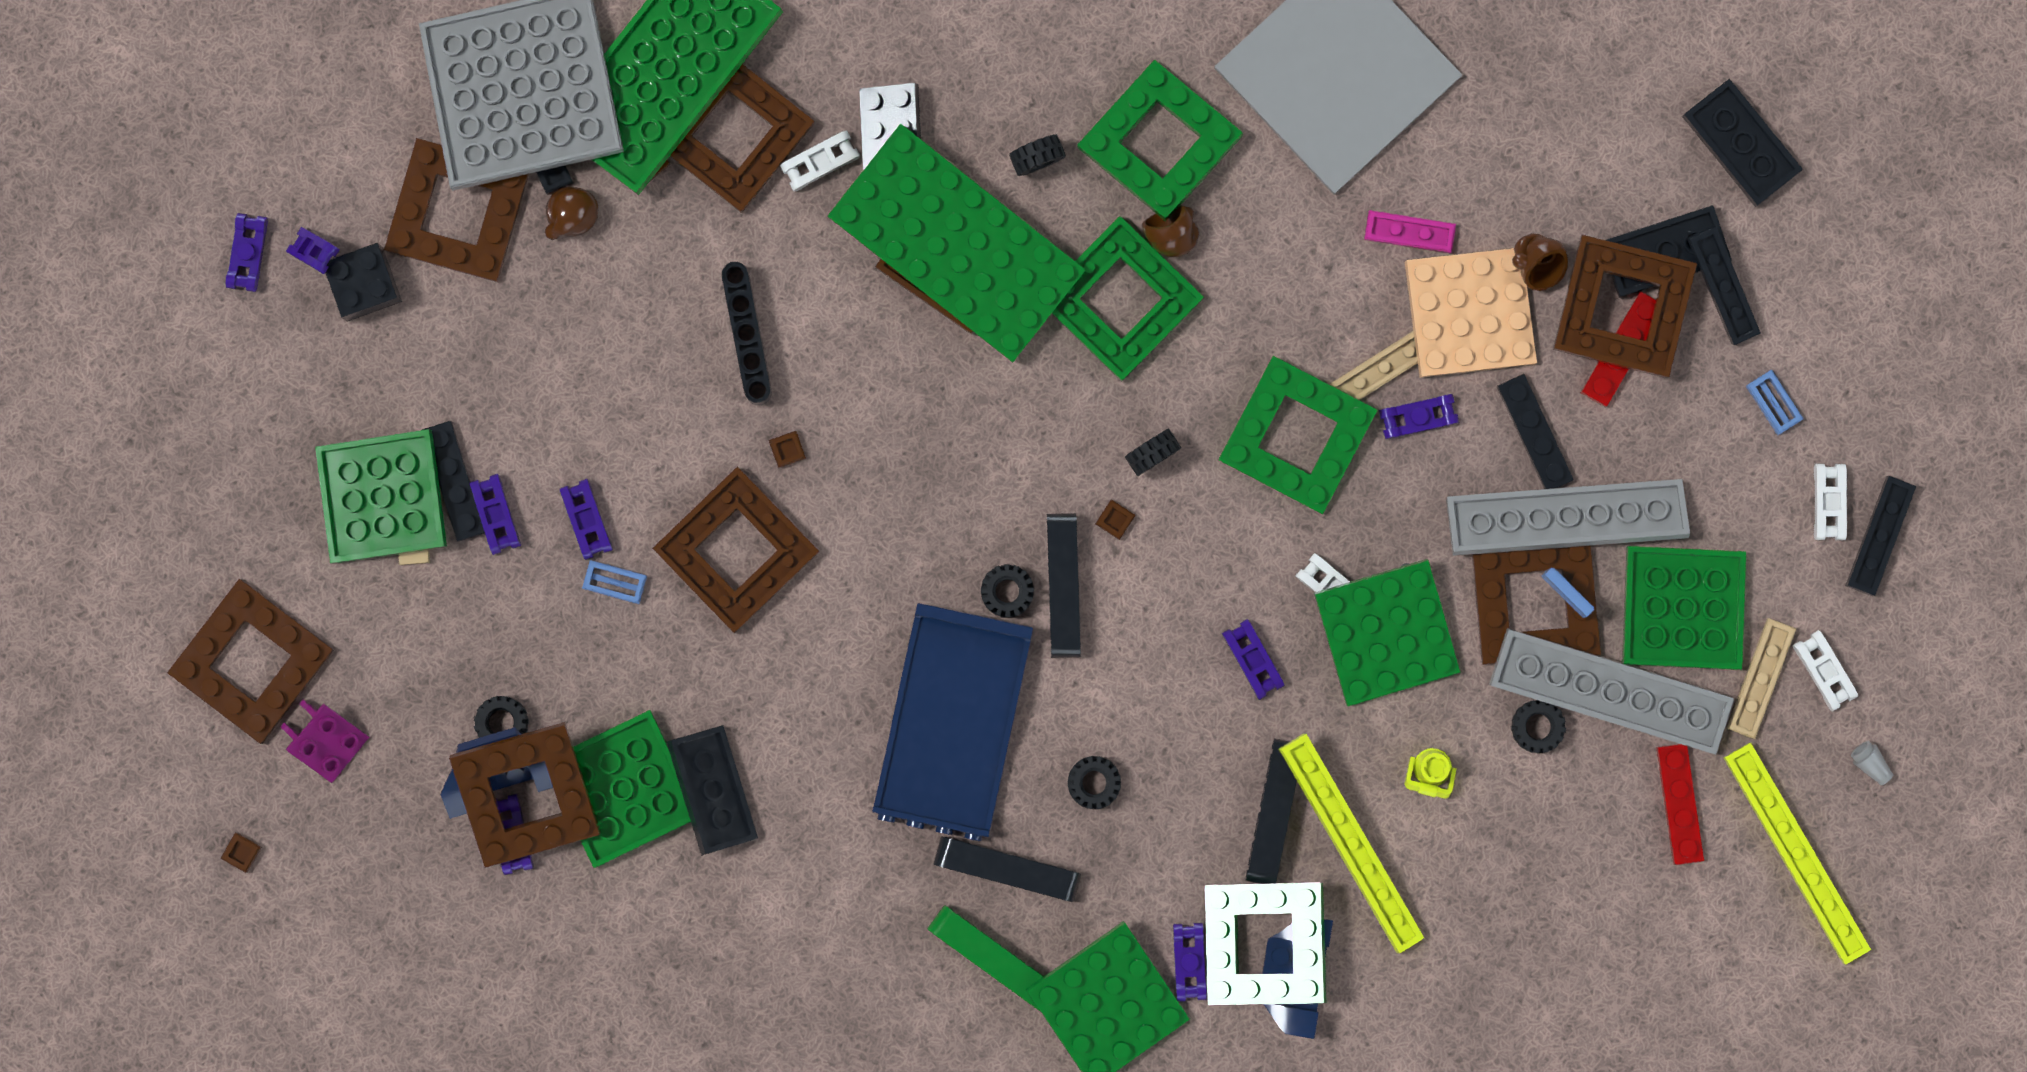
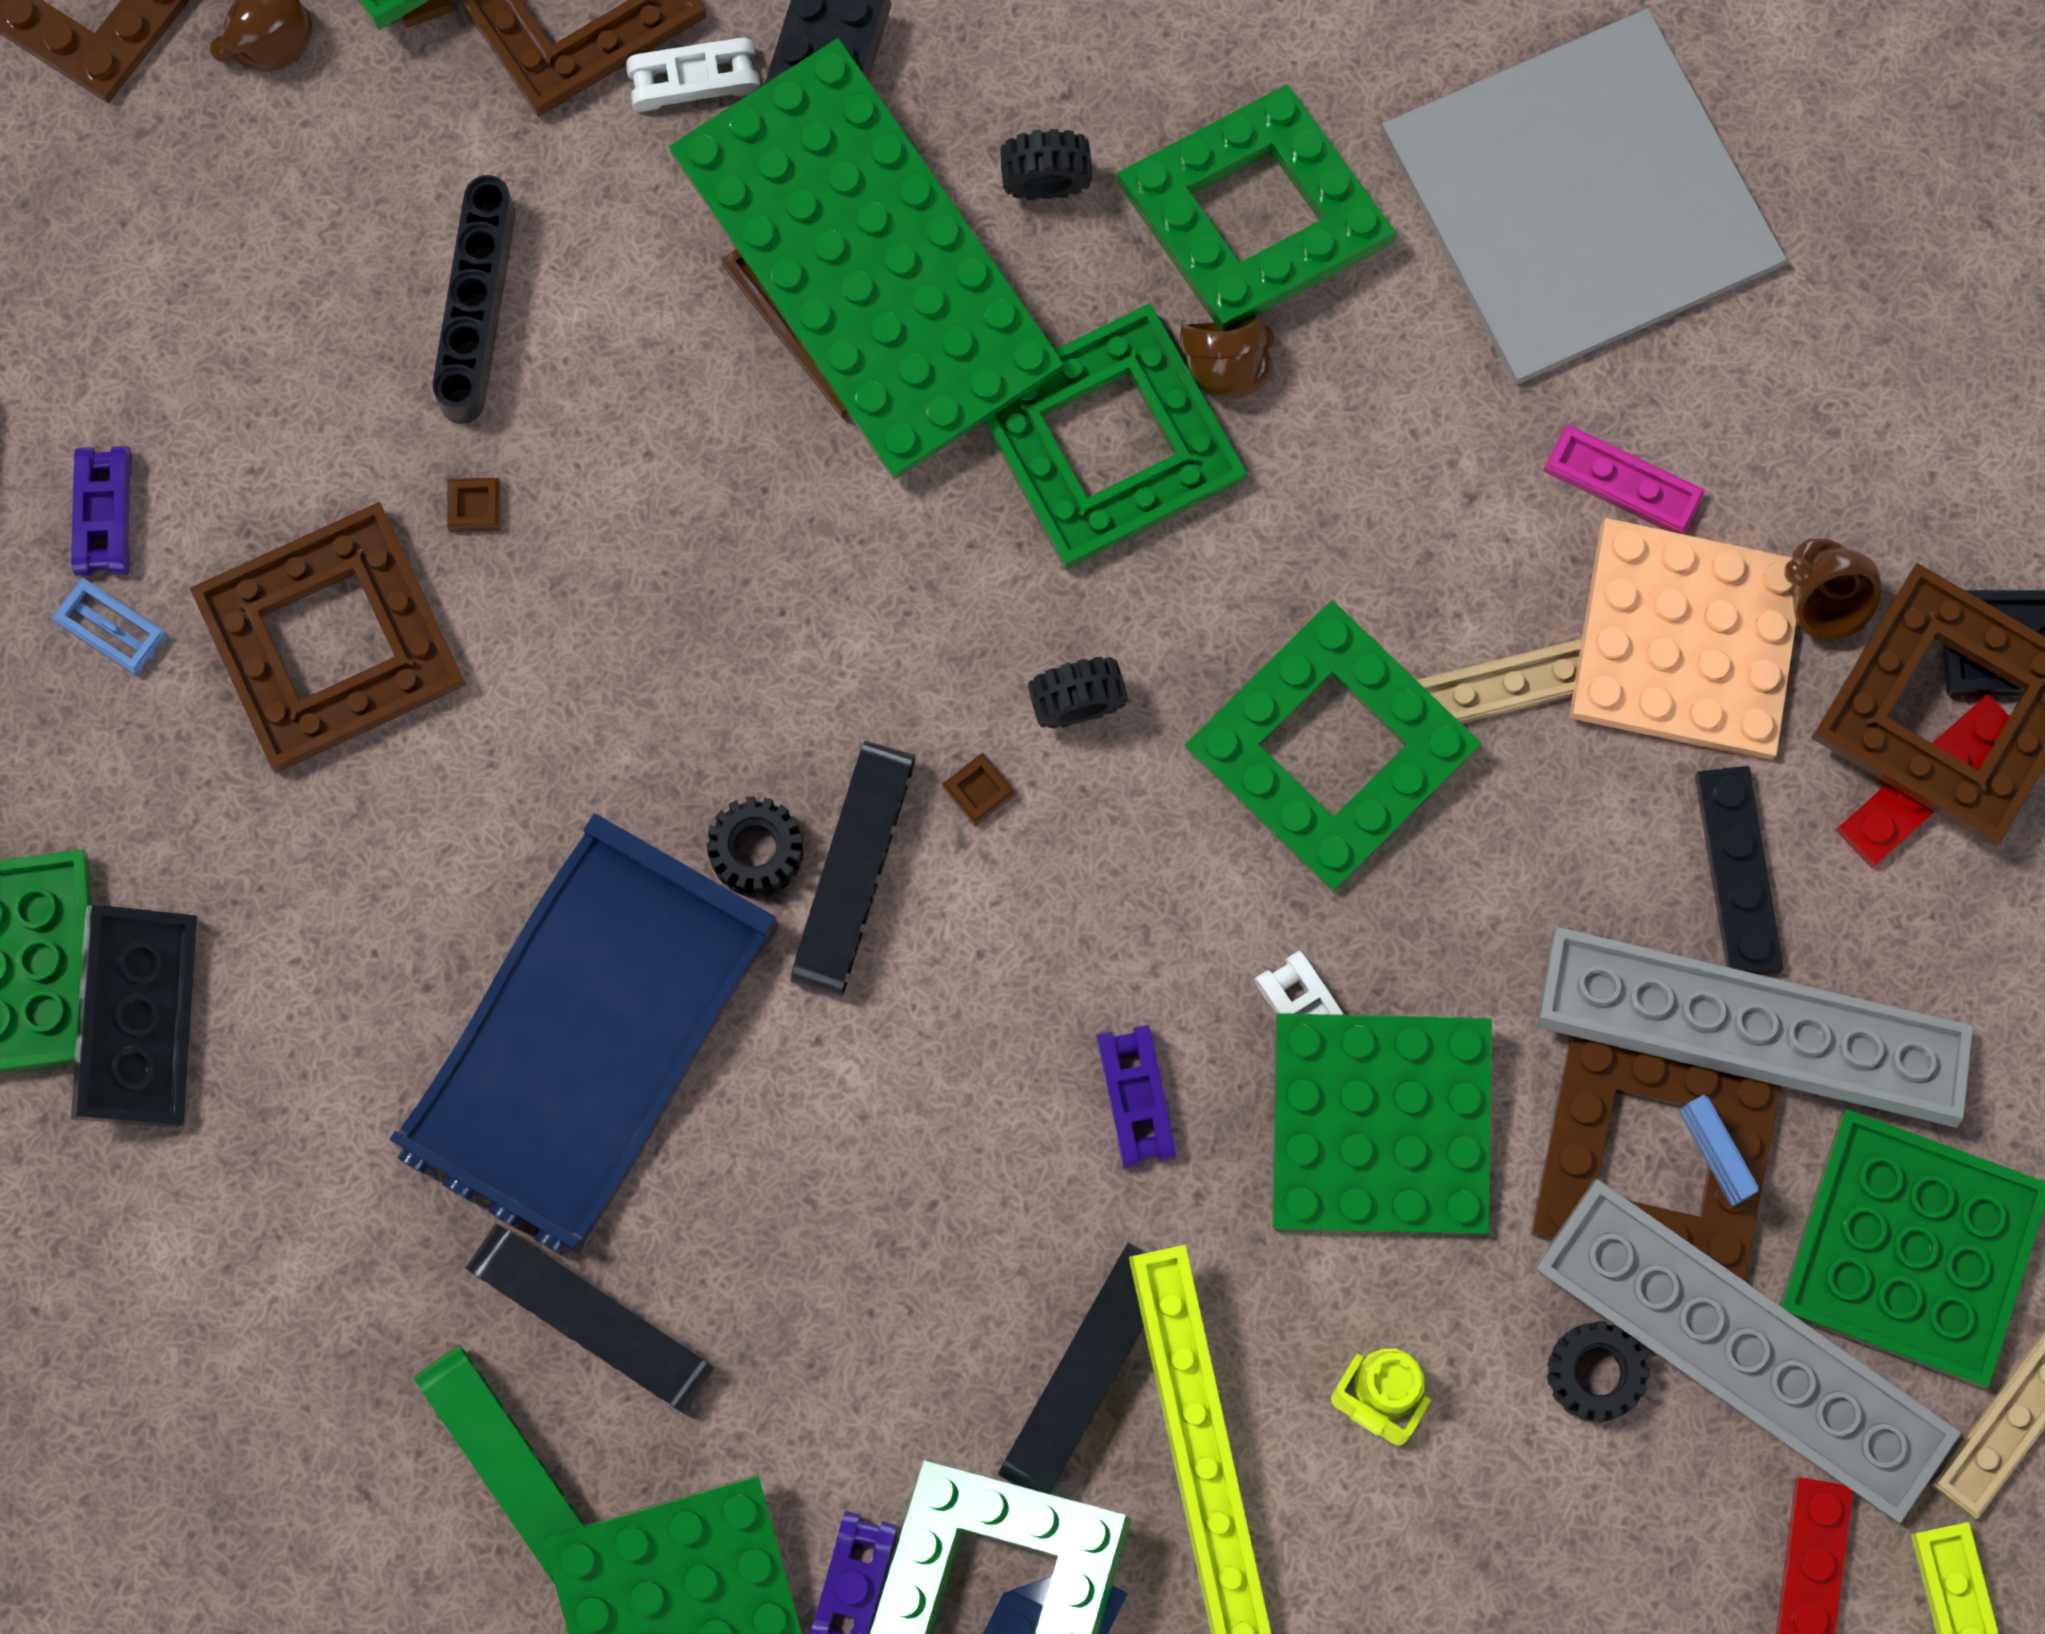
camera: 15 degrees right, 10 degrees down
(1112, 787) = (785, 1185): black tyre -> none
(1418, 416) = (1548, 781): dark purple plate -> none

